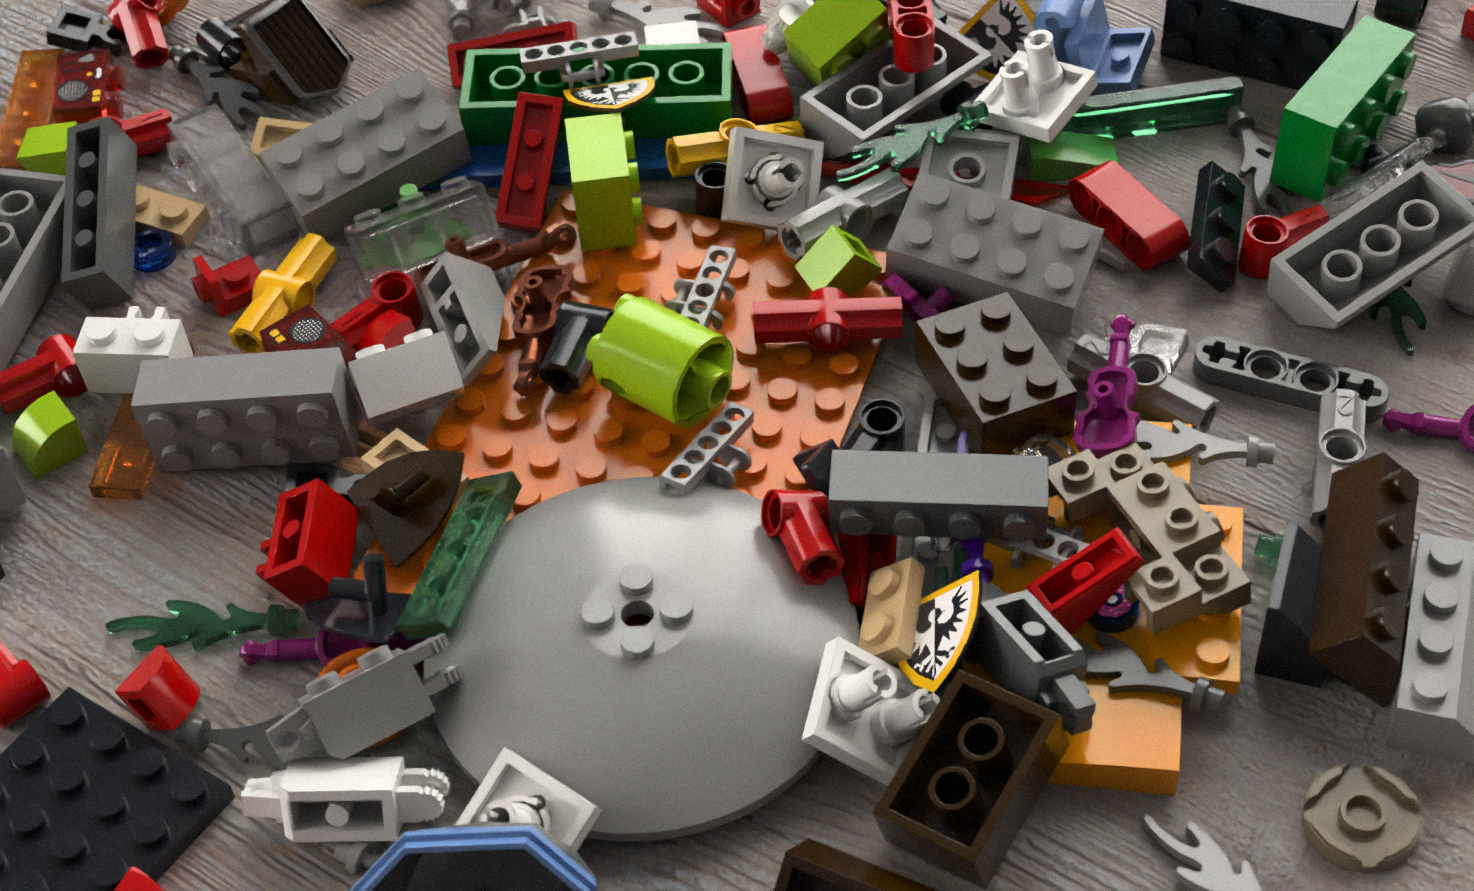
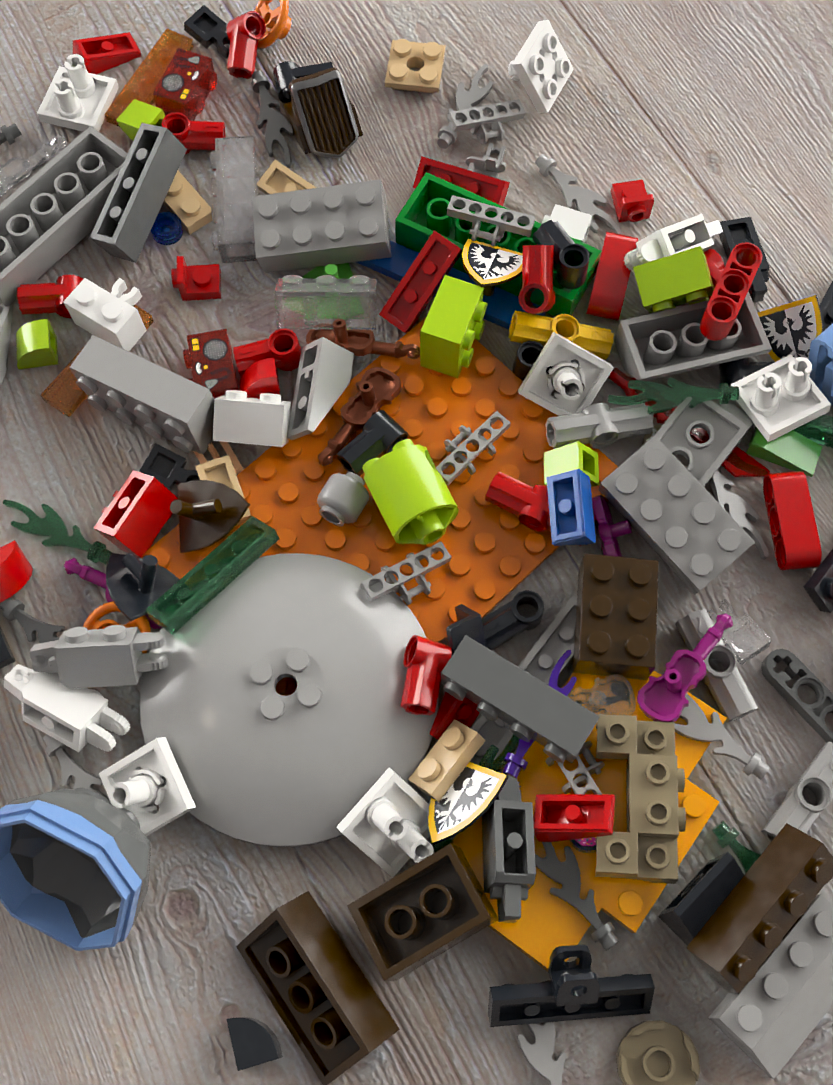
camera: 25 degrees right, 20 degrees up
(283, 290) = (224, 306): yellow piece -> none
(576, 413) = (343, 498): none -> light grey head
(676, 85) = (537, 273): none -> red piece
(700, 55) = (570, 259): none -> black piece
(867, 292) = (571, 509): none -> blue slope
(1211, 780) = (570, 993): none -> black plate

